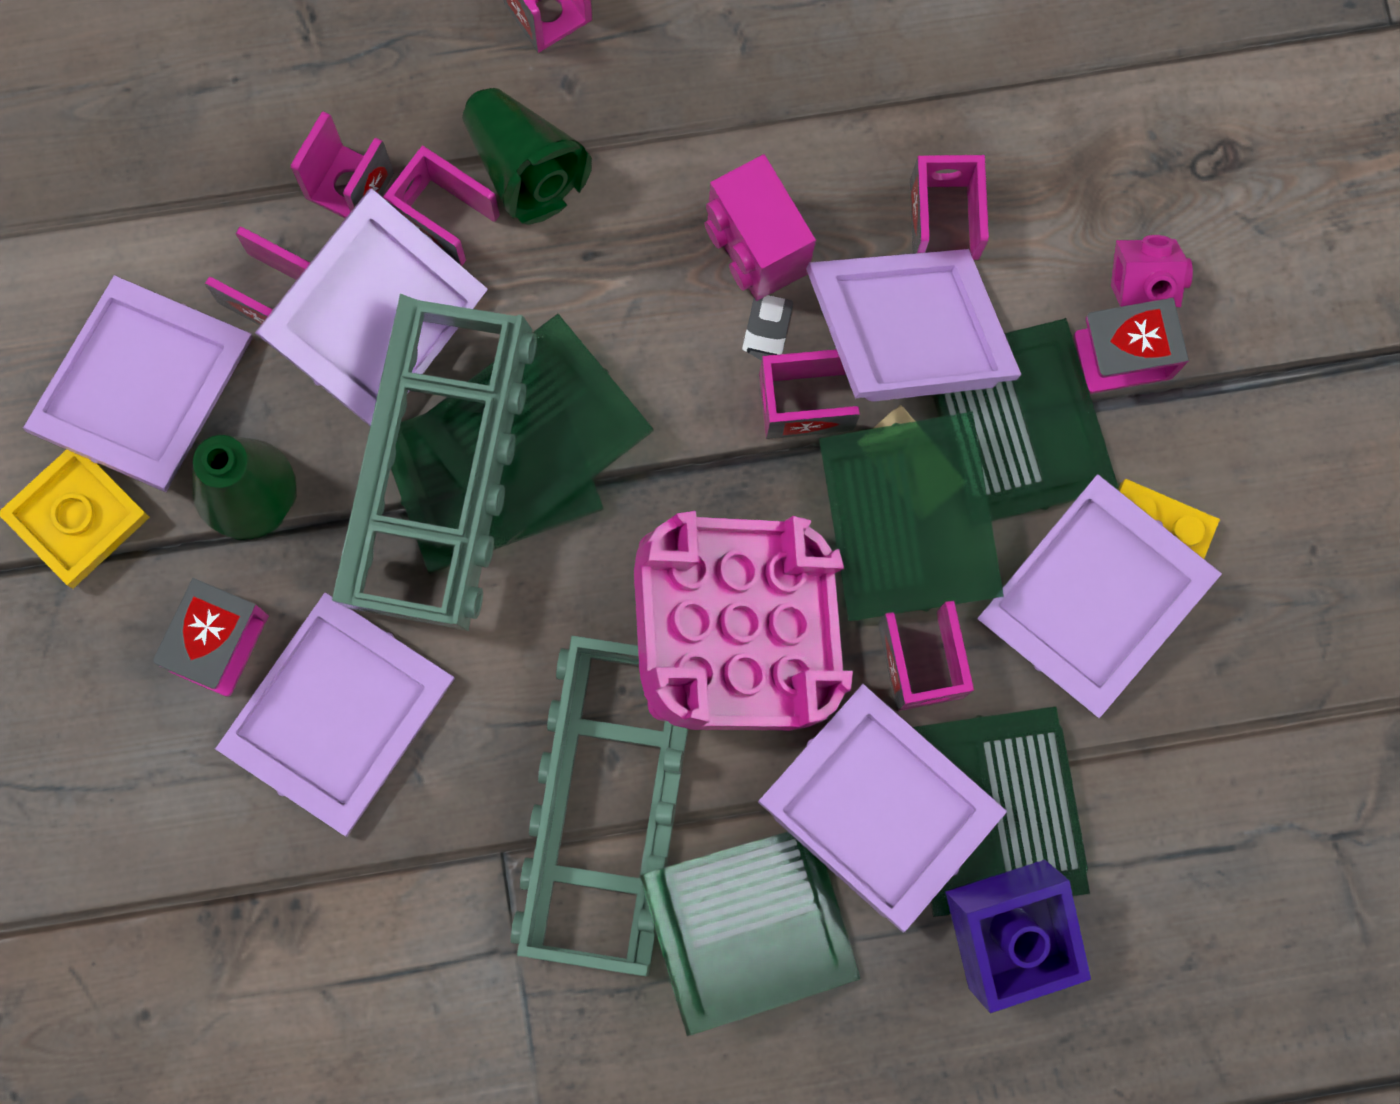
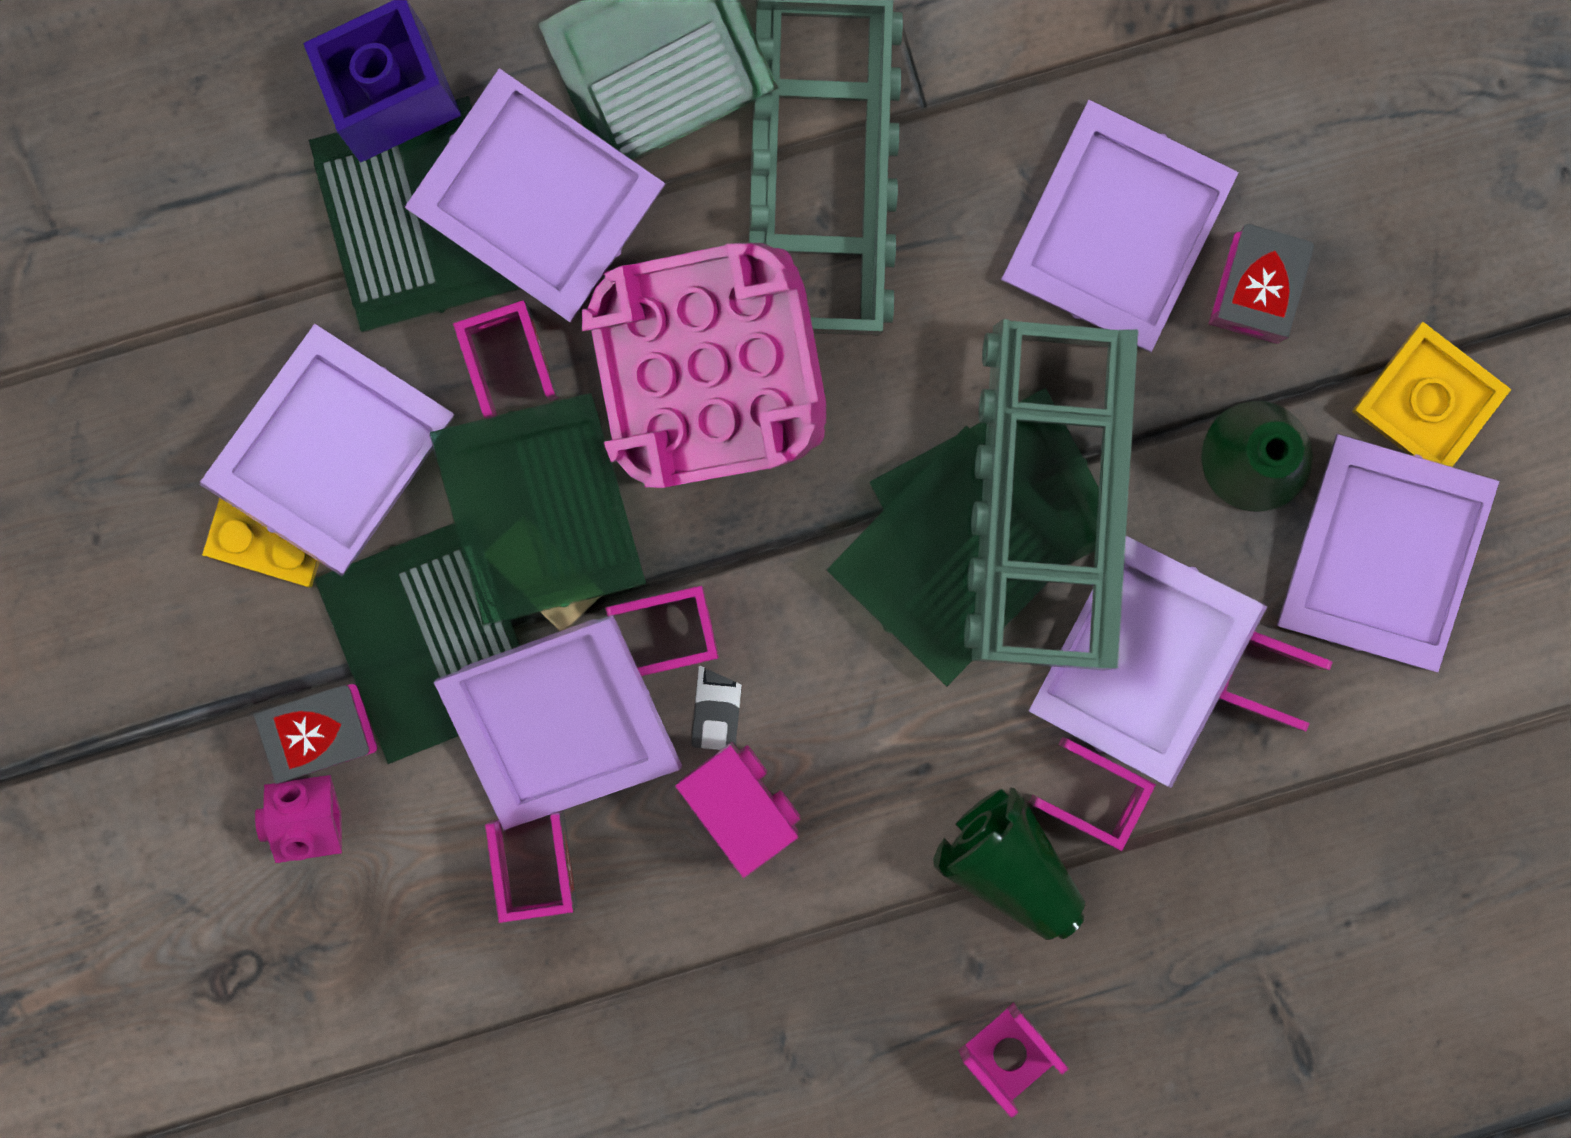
camera: 175 degrees right, 10 degrees up
(325, 159) = (1232, 824): dark pink piece -> none

